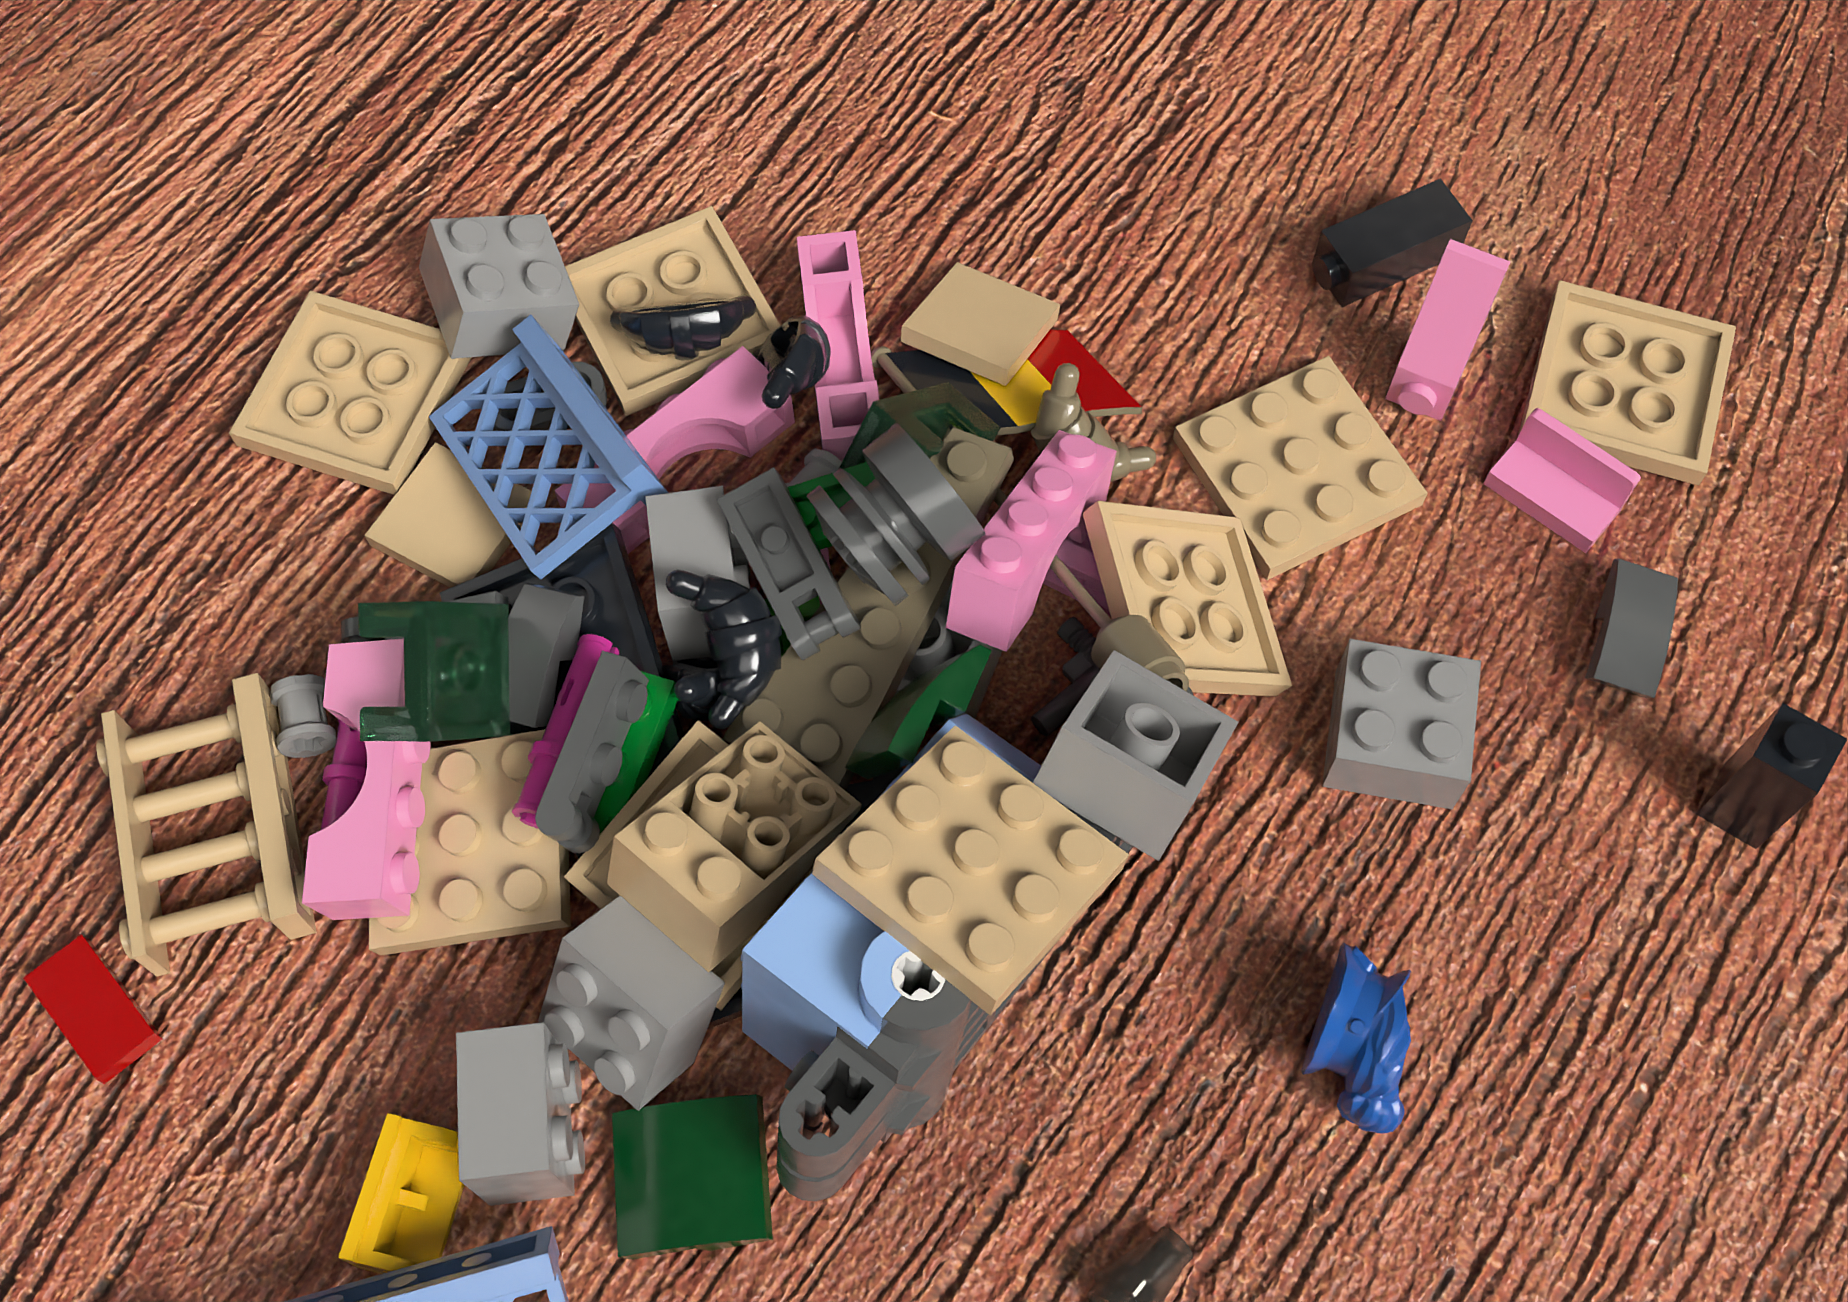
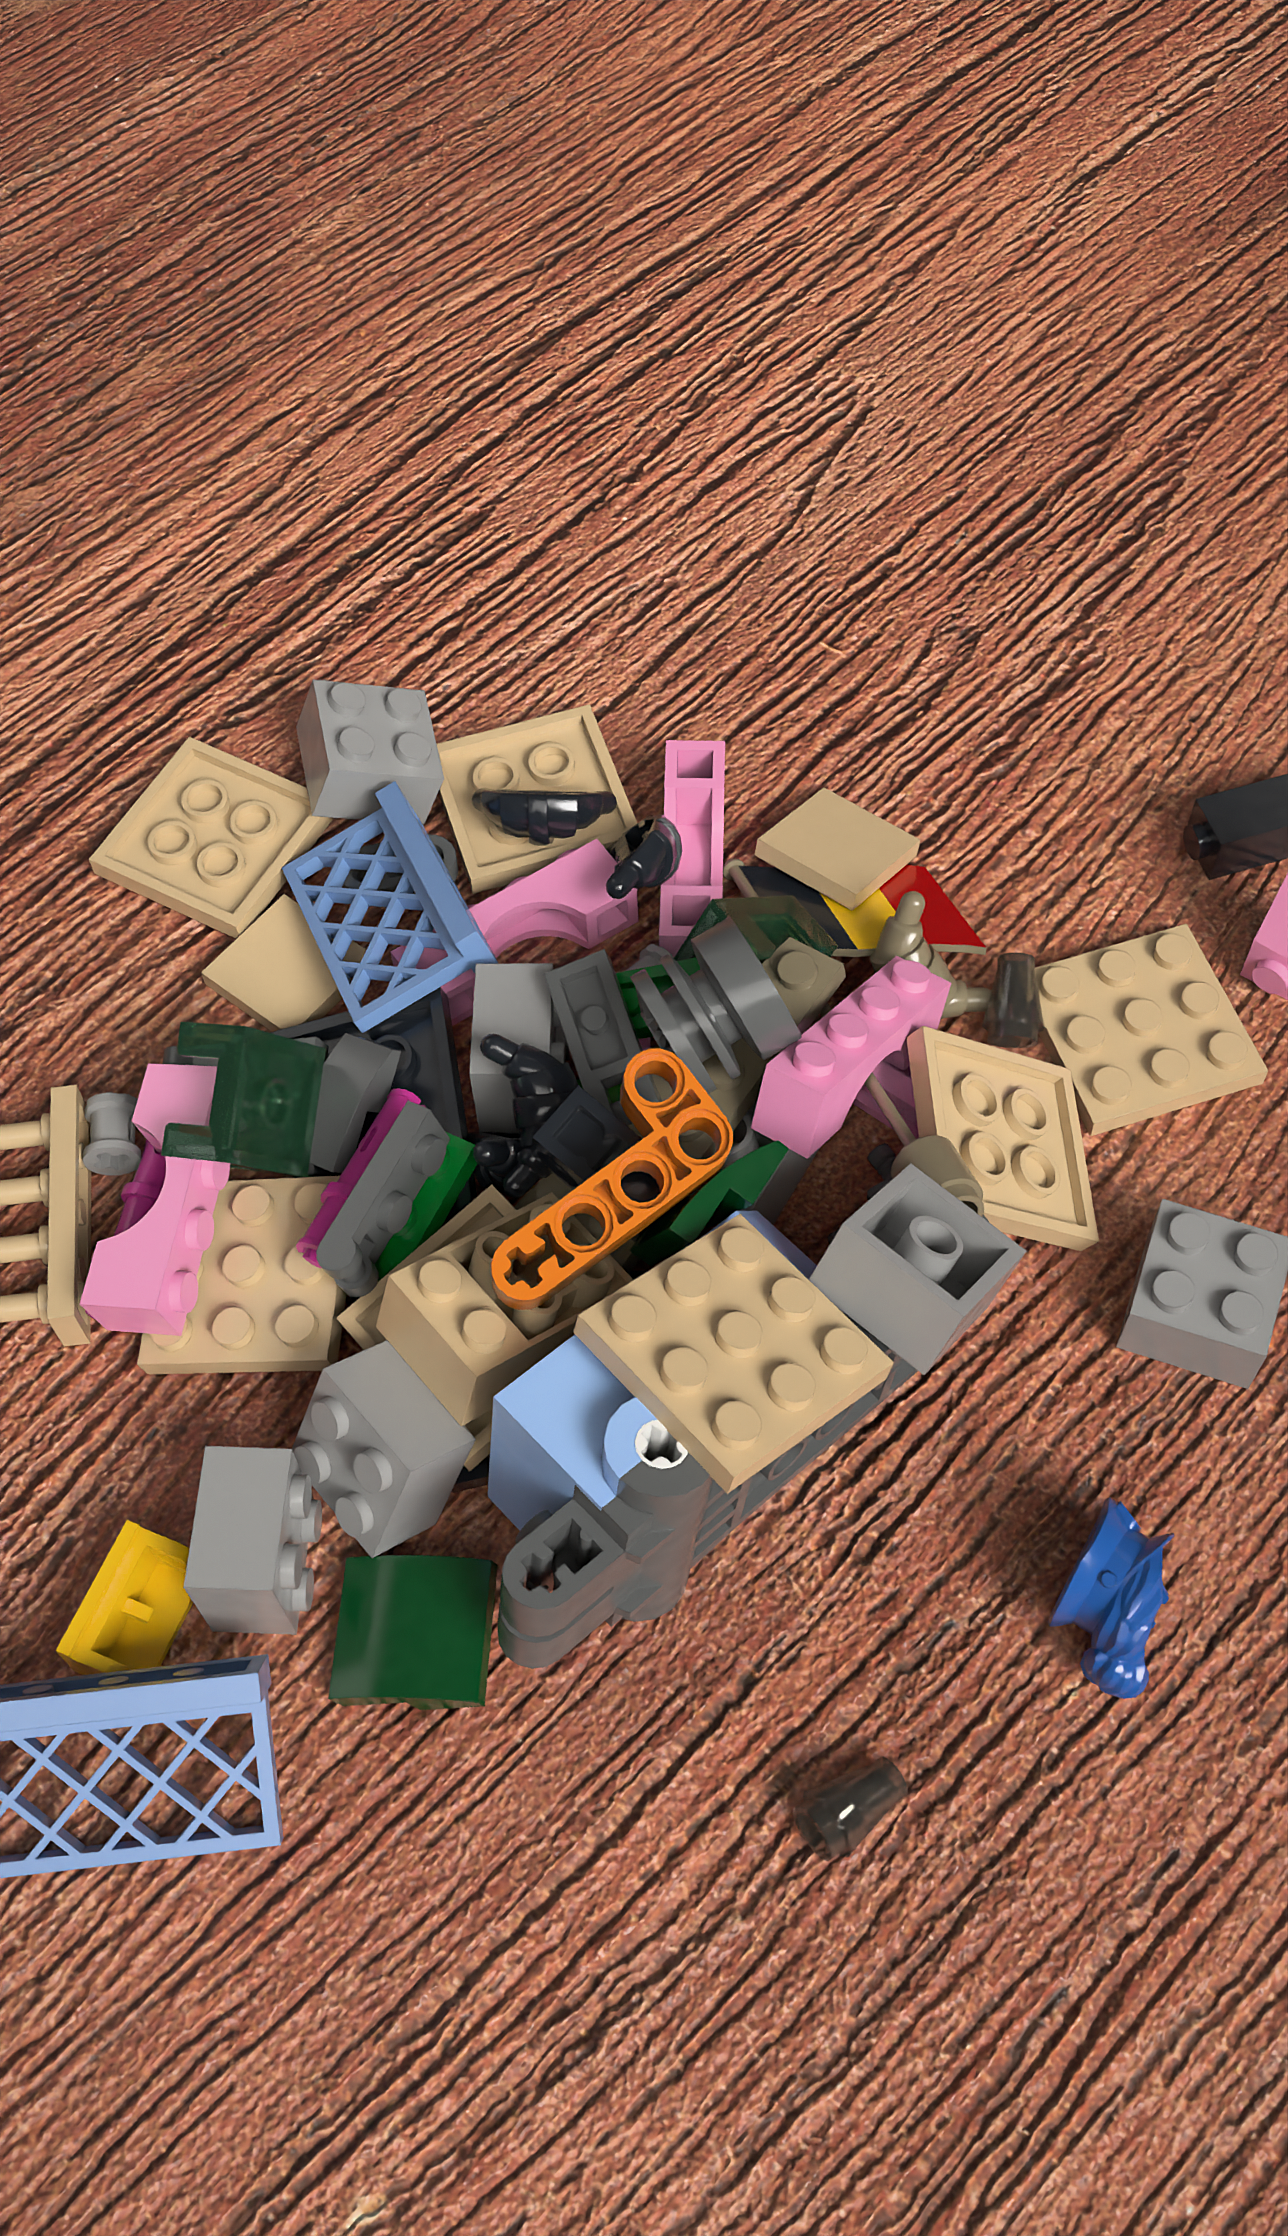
camera: 10 degrees right, 5 degrees down
(812, 688) = (585, 1139): none -> black brick
(818, 727) = (602, 1193): none -> orange beam
(1176, 459) = (1014, 1003): none -> clear smoke cone

